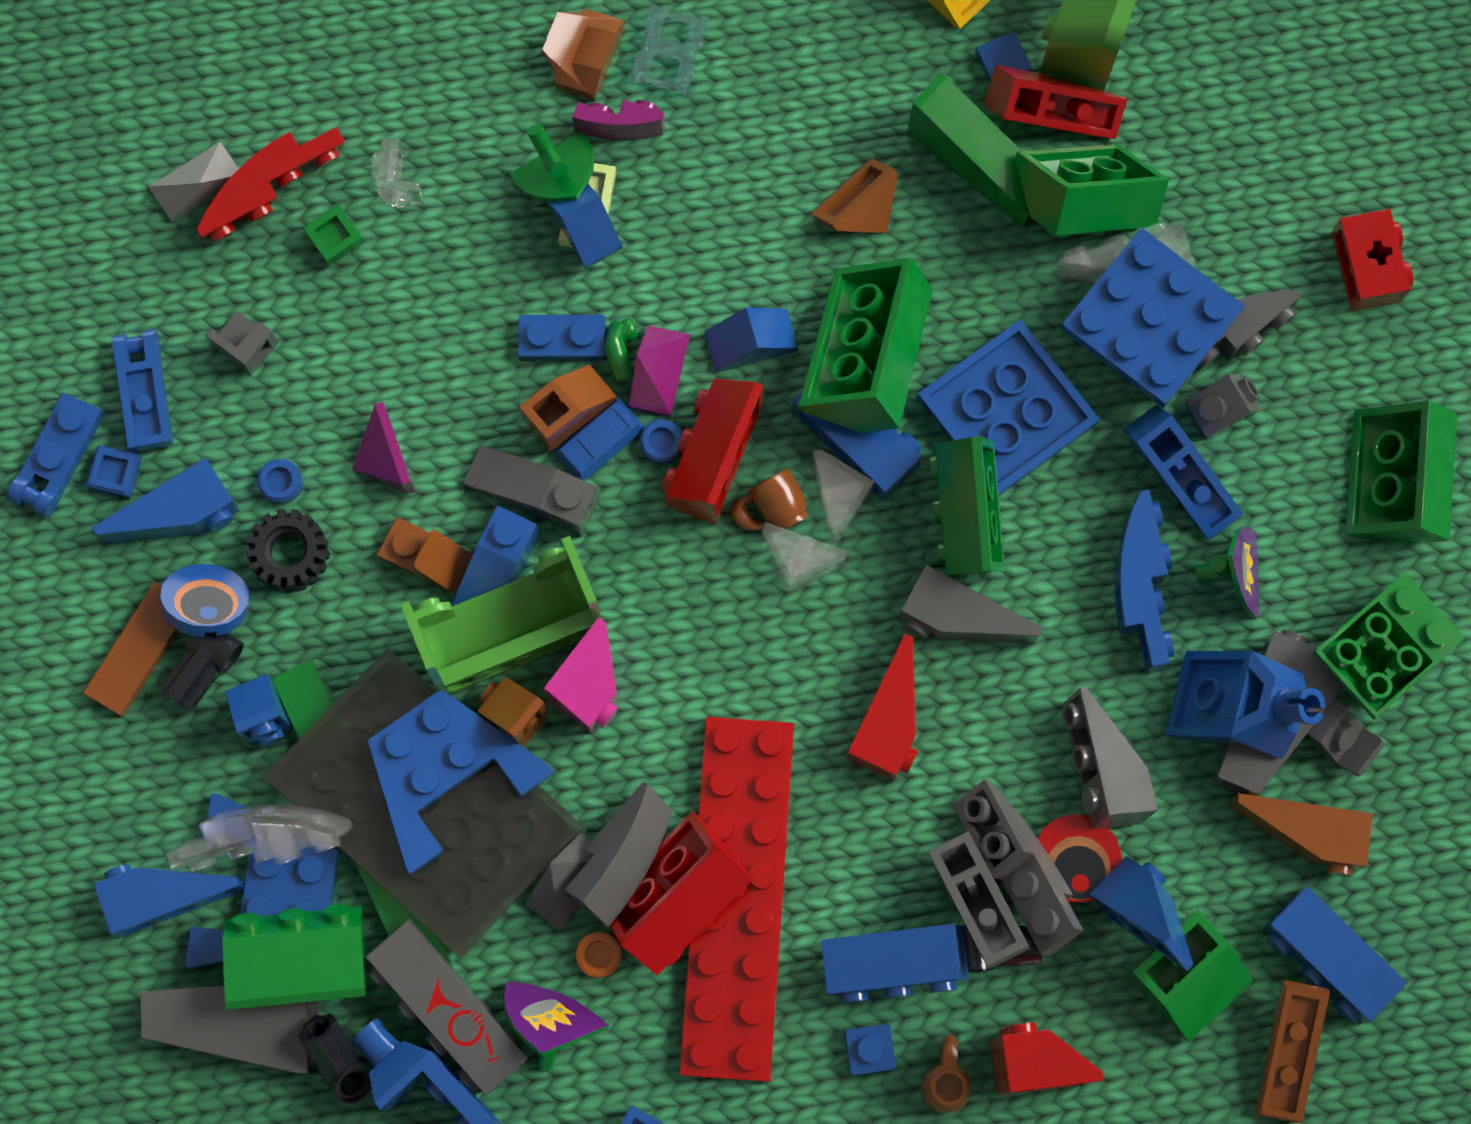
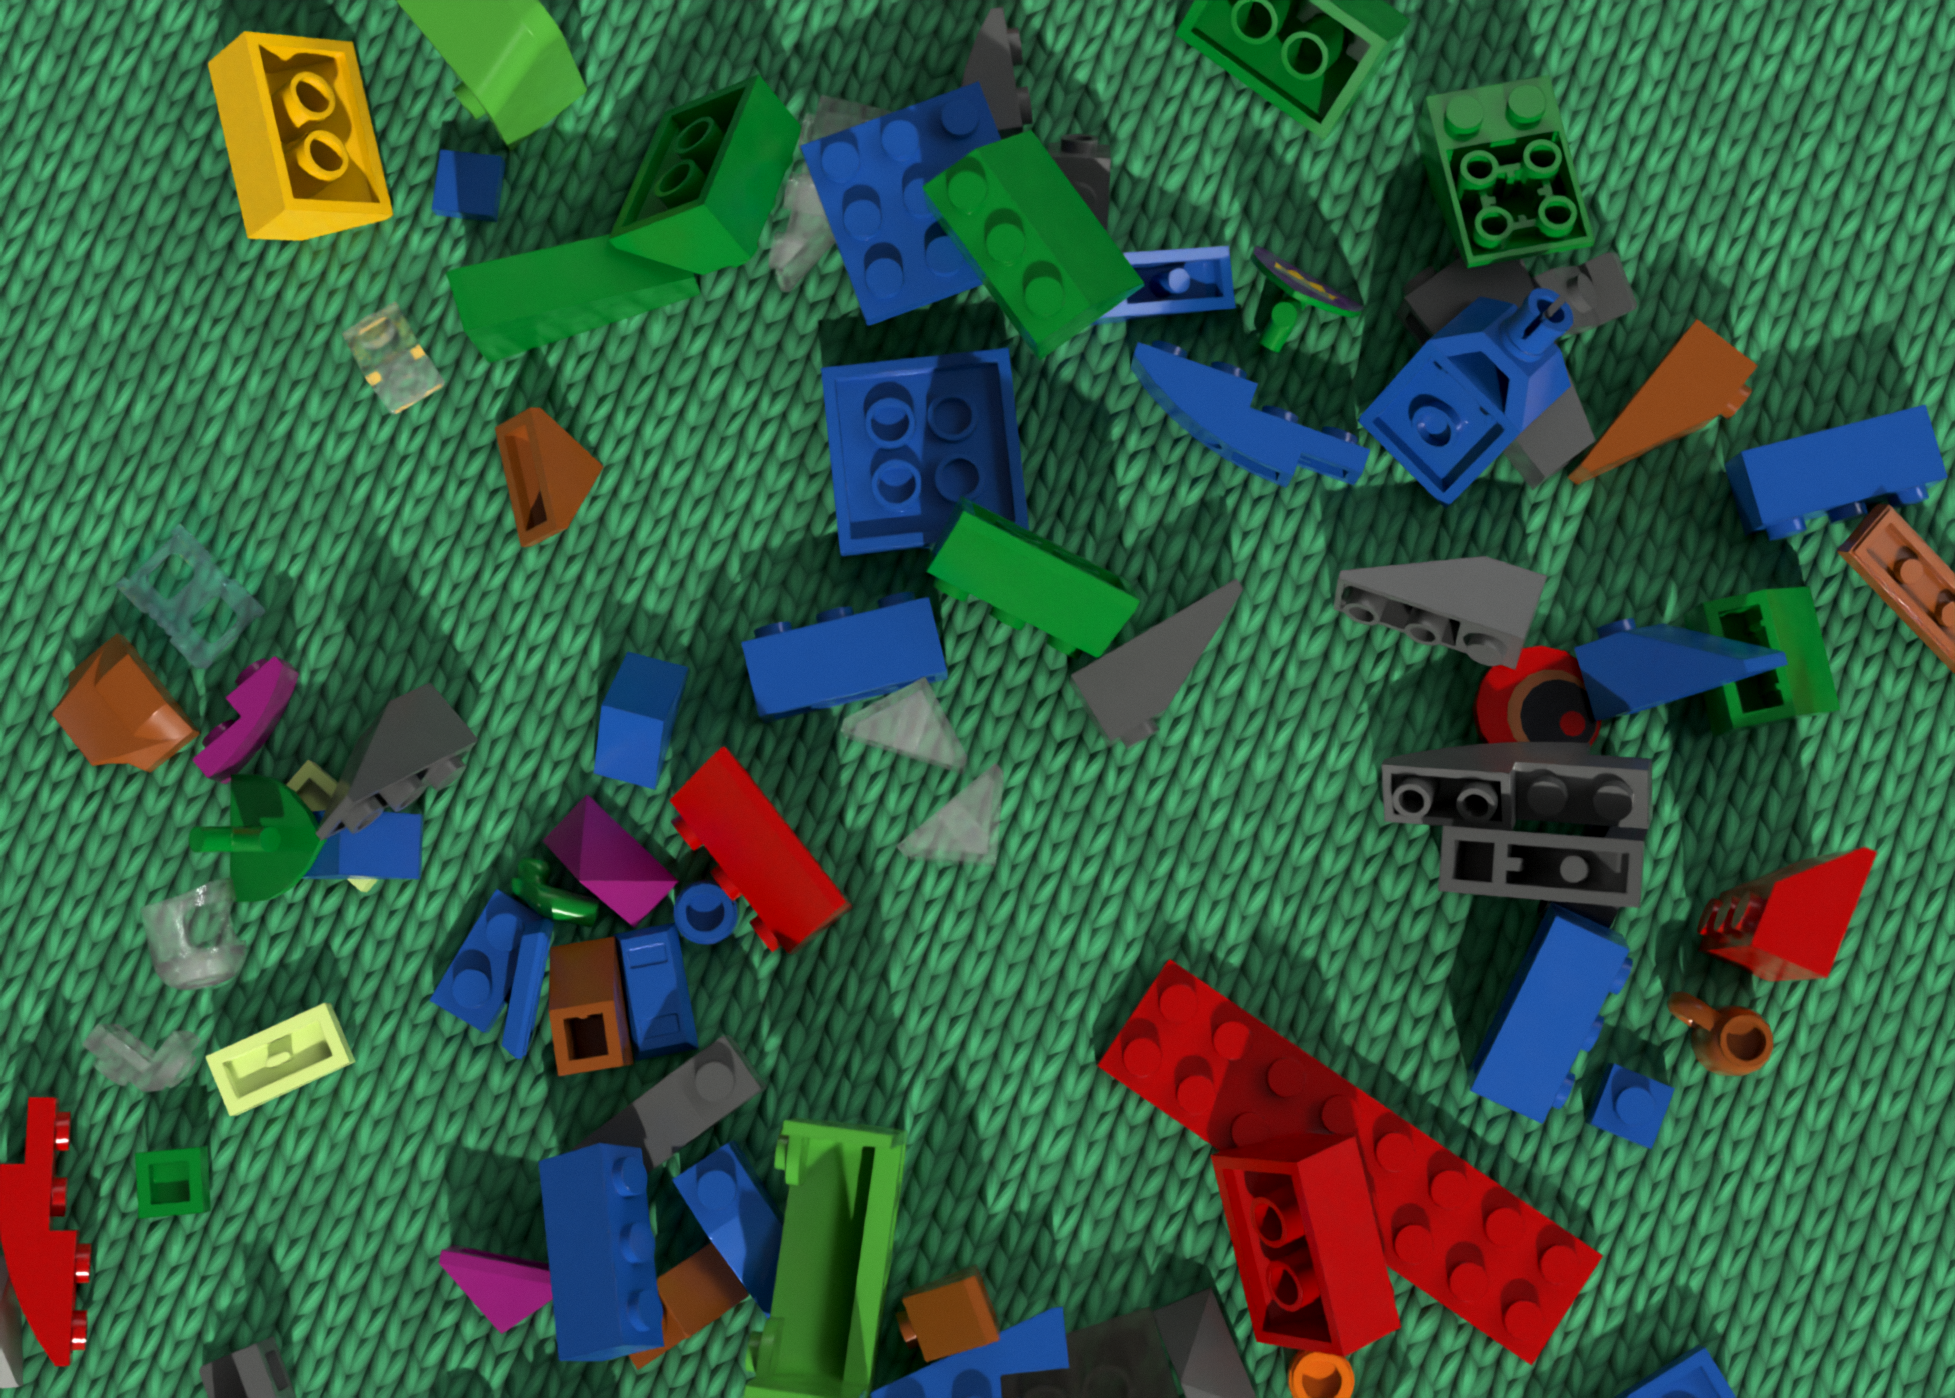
camera: 55 degrees left, 5 degrees up
(432, 489) = (600, 1253): none -> blue brick
(437, 252) = (280, 1059): none -> yellowish green plate
(479, 164) = (178, 935): none -> clear helmet
(558, 363) = (527, 987): none -> blue tile
(586, 681) = (970, 1194): dark pink slope -> none
(621, 855) = (1218, 1281): dark grey slope -> none
(652, 215) = (401, 753): none -> dark grey slope
(777, 500) = (873, 811): dark orange piece -> none
(867, 345) = (745, 580): green slope -> none
(875, 77) = (393, 358): none -> clear bracket
(889, 725) = (1240, 840): red slope -> none
(1054, 102) = (564, 157): red slope -> none
(1166, 387) = (1031, 240): none -> green slope

